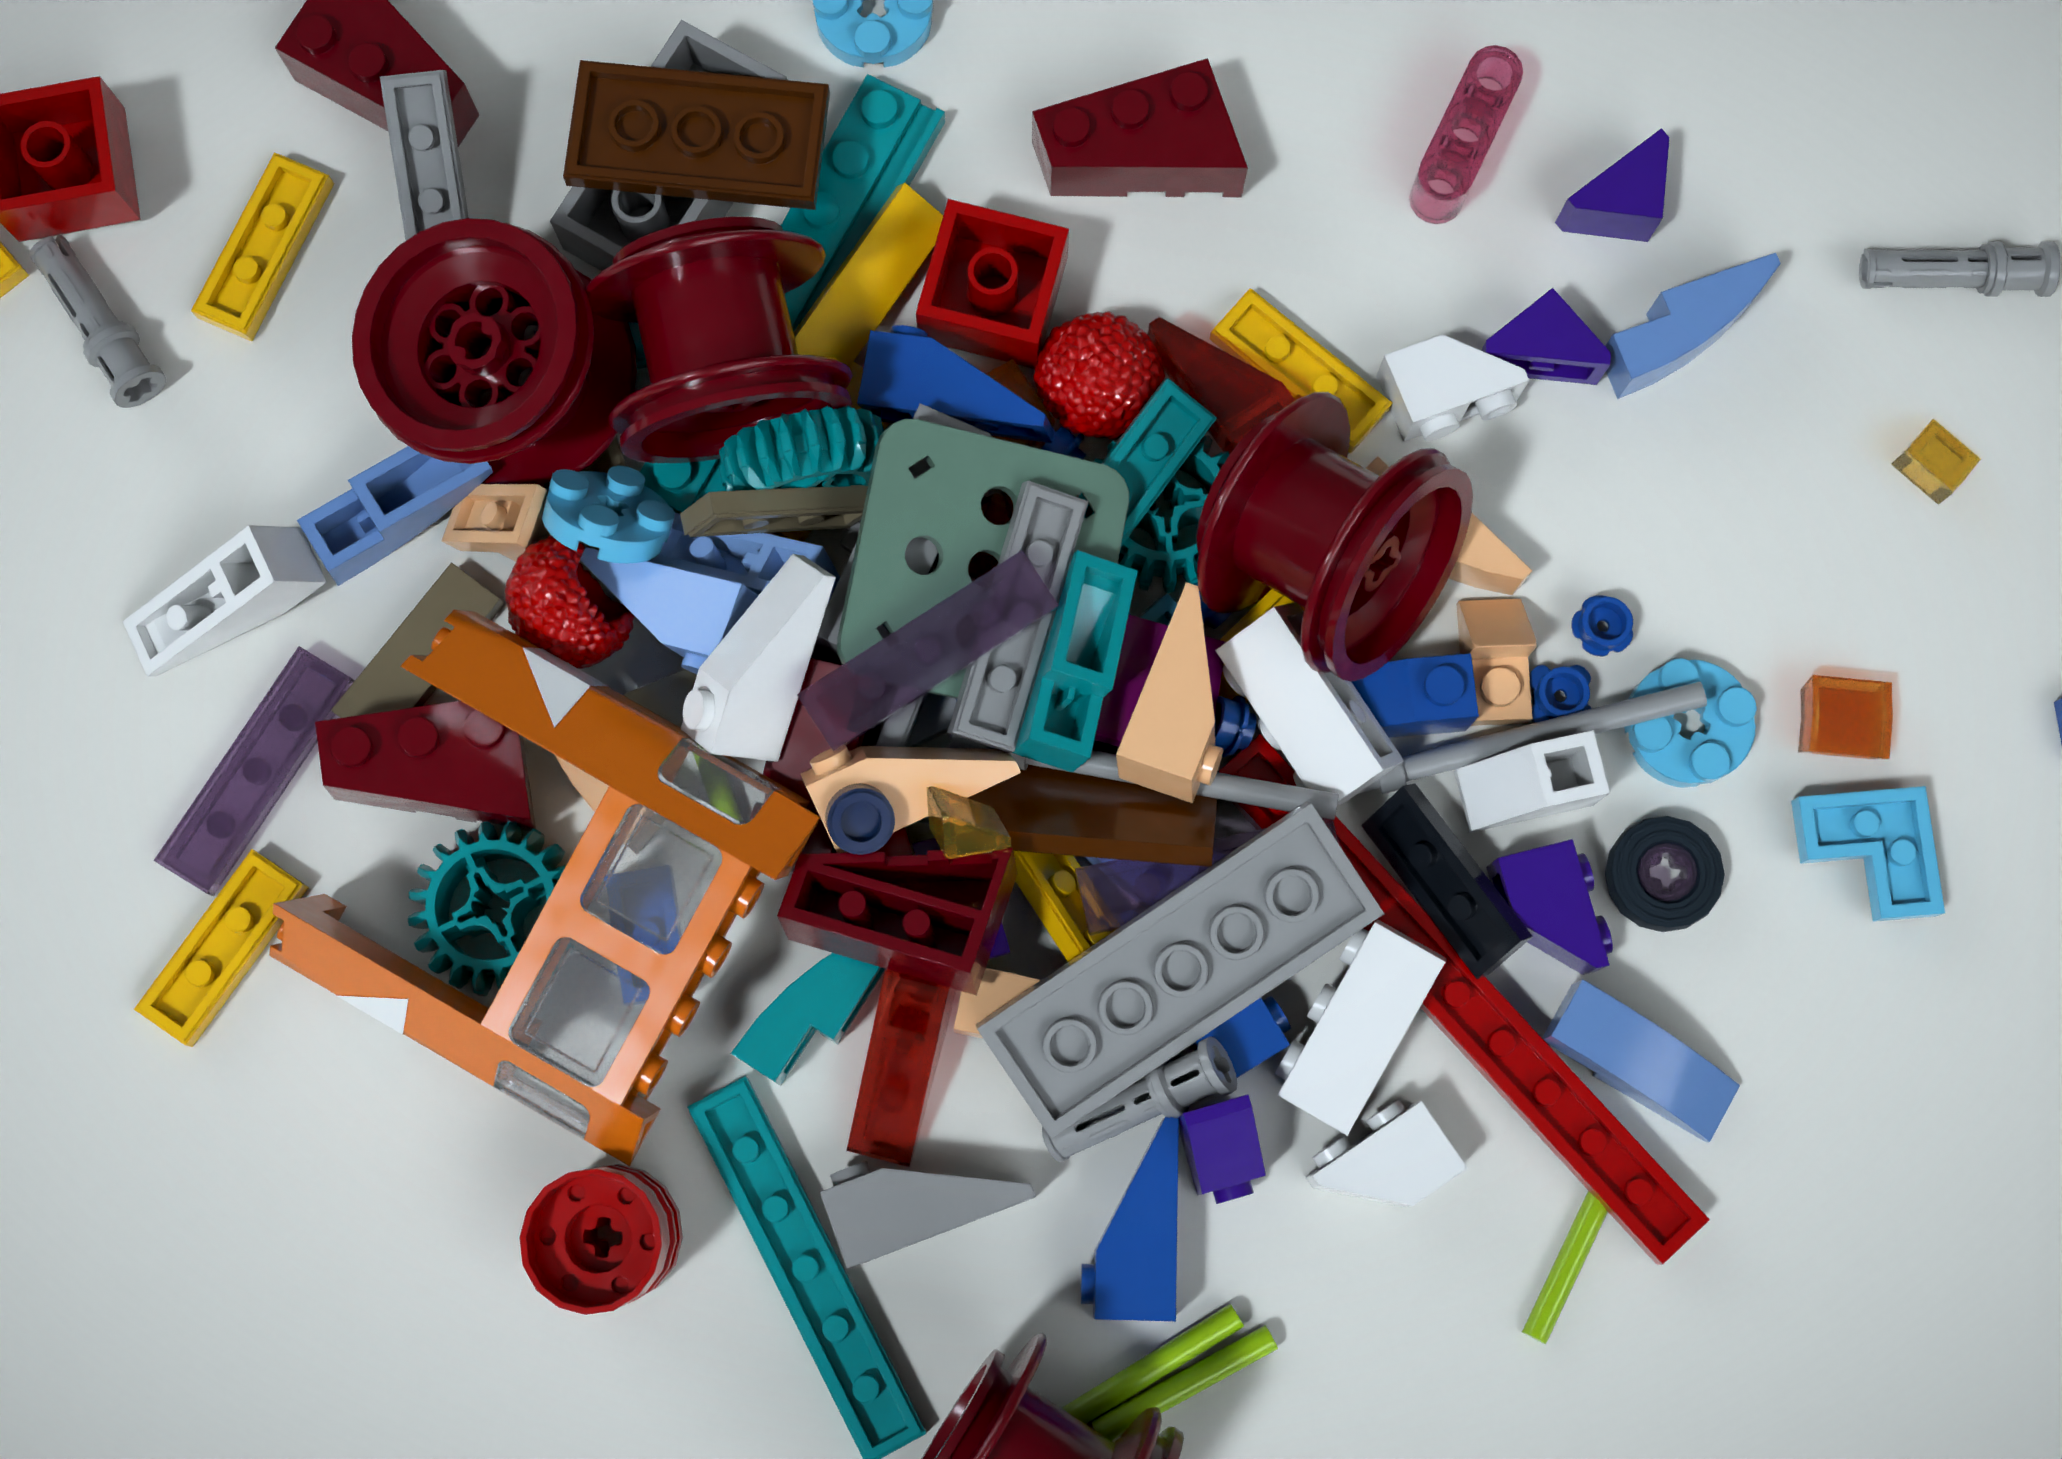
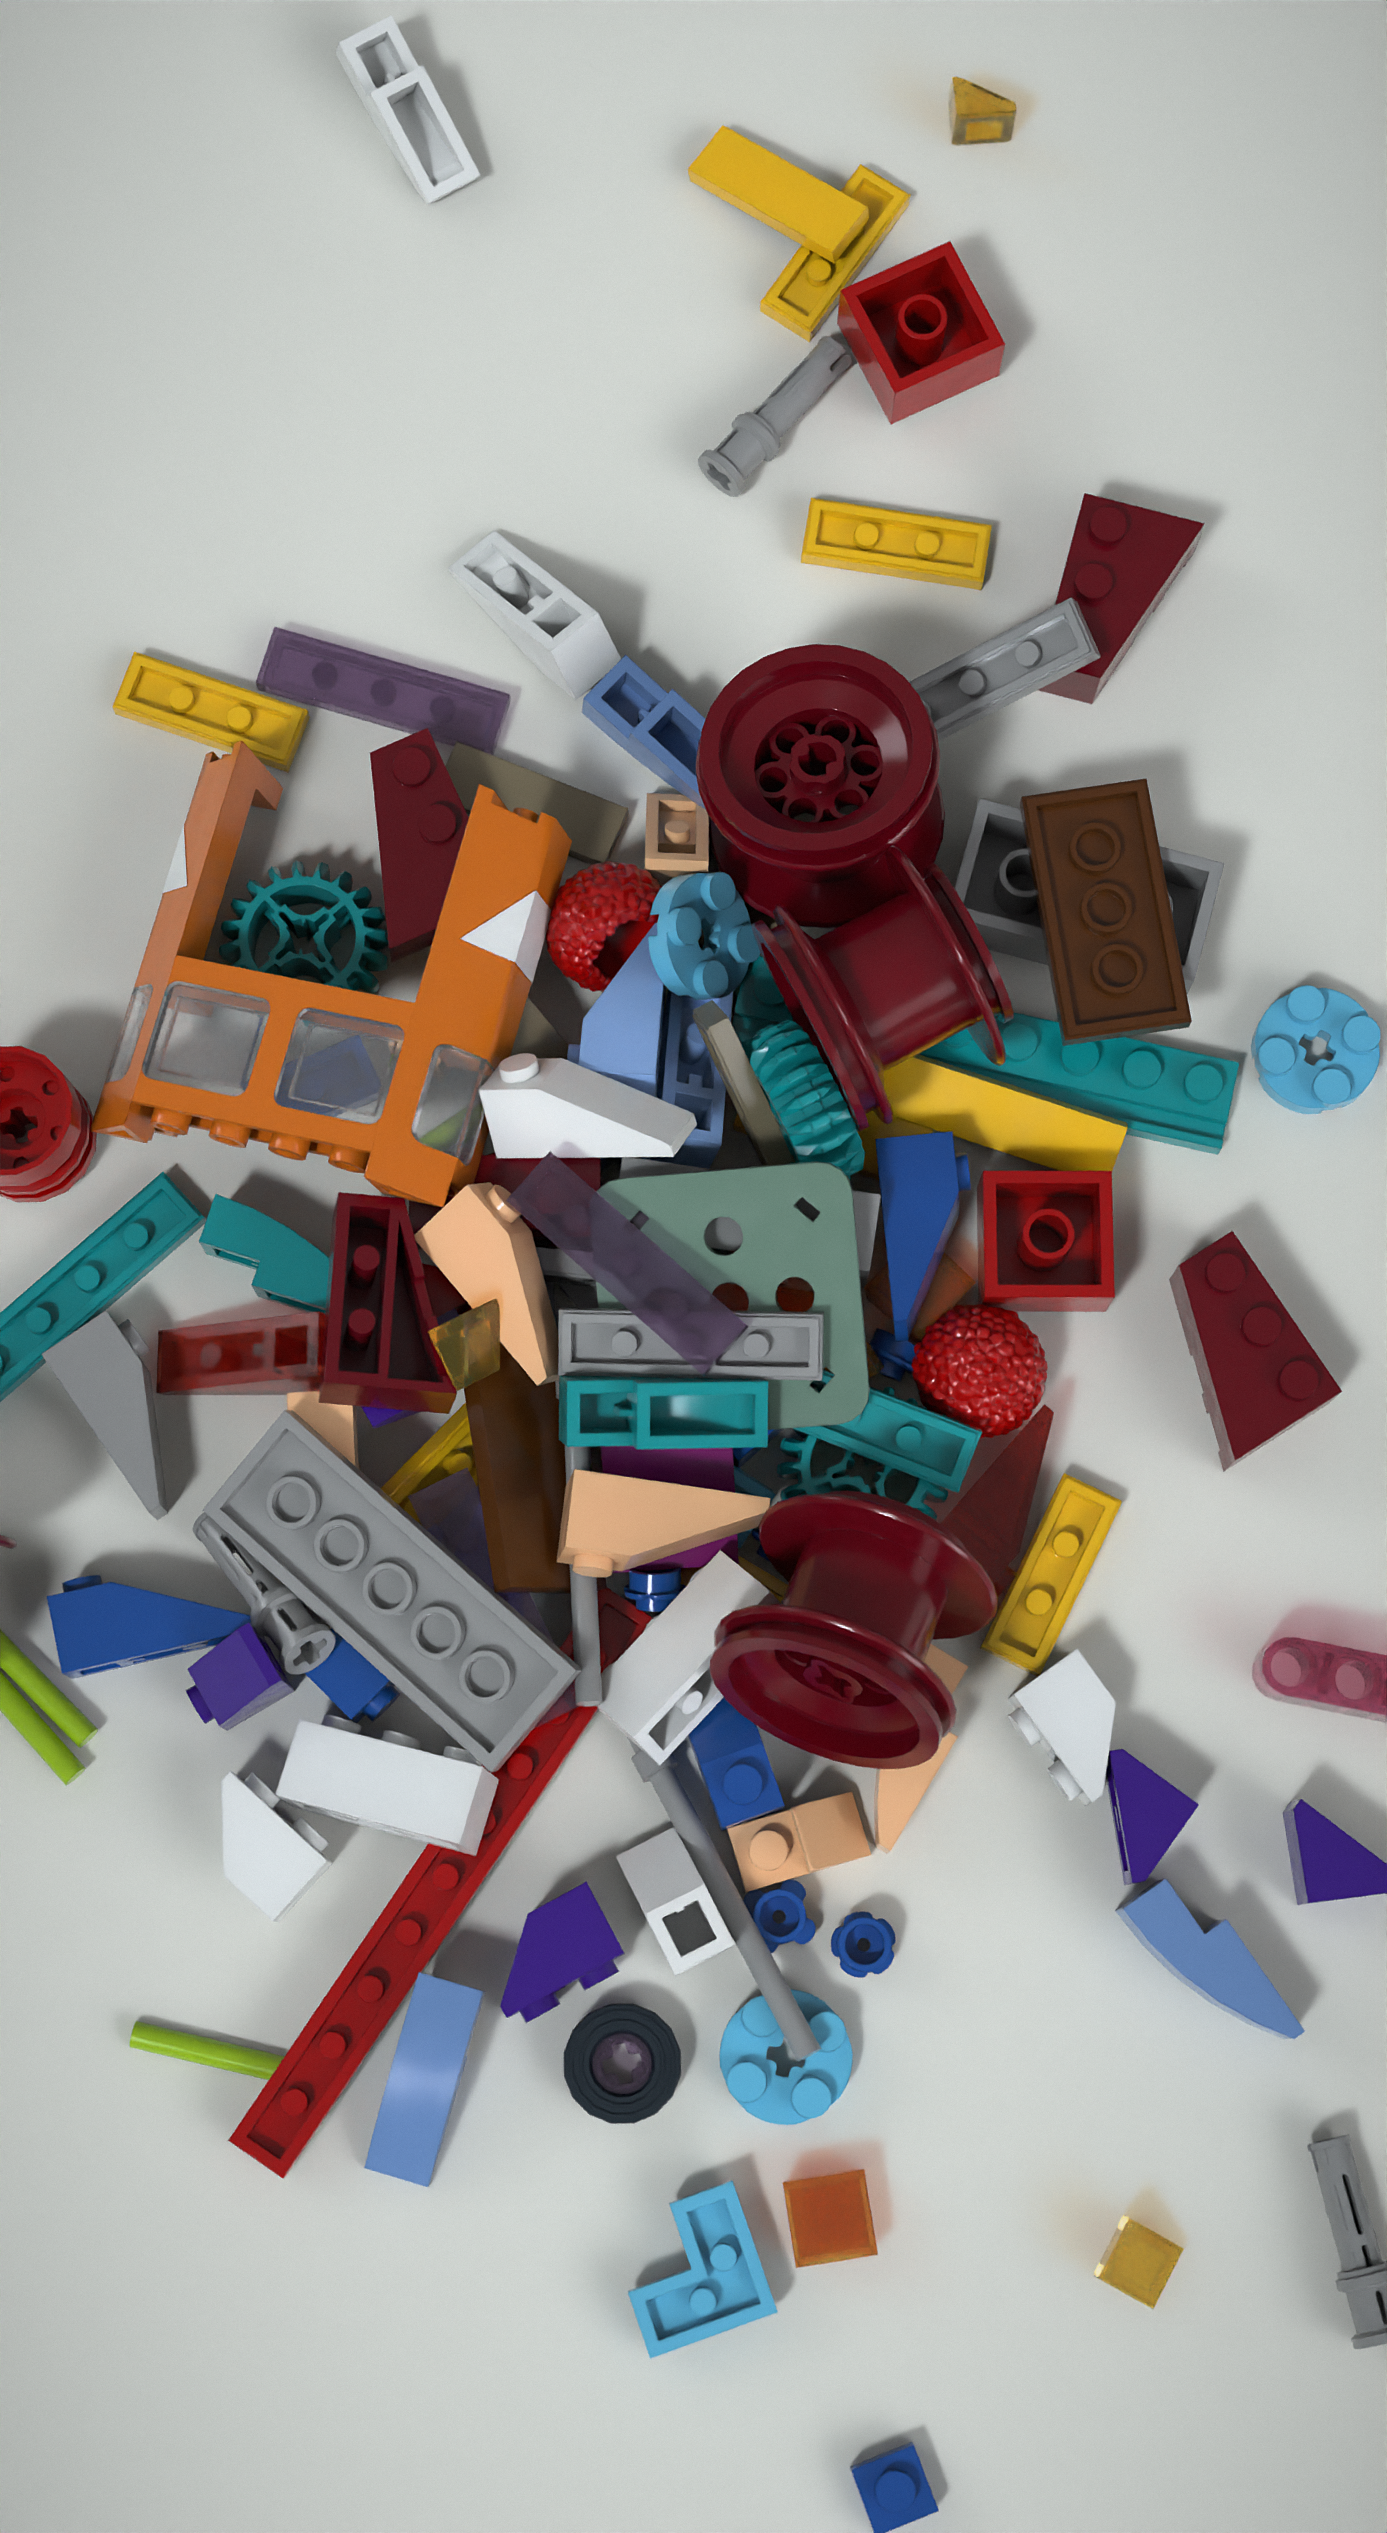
camera: 75 degrees right, 0 degrees up
(860, 819) = (449, 1244): dark blue tile -> none
(1446, 881) = (554, 1838): black plate -> none

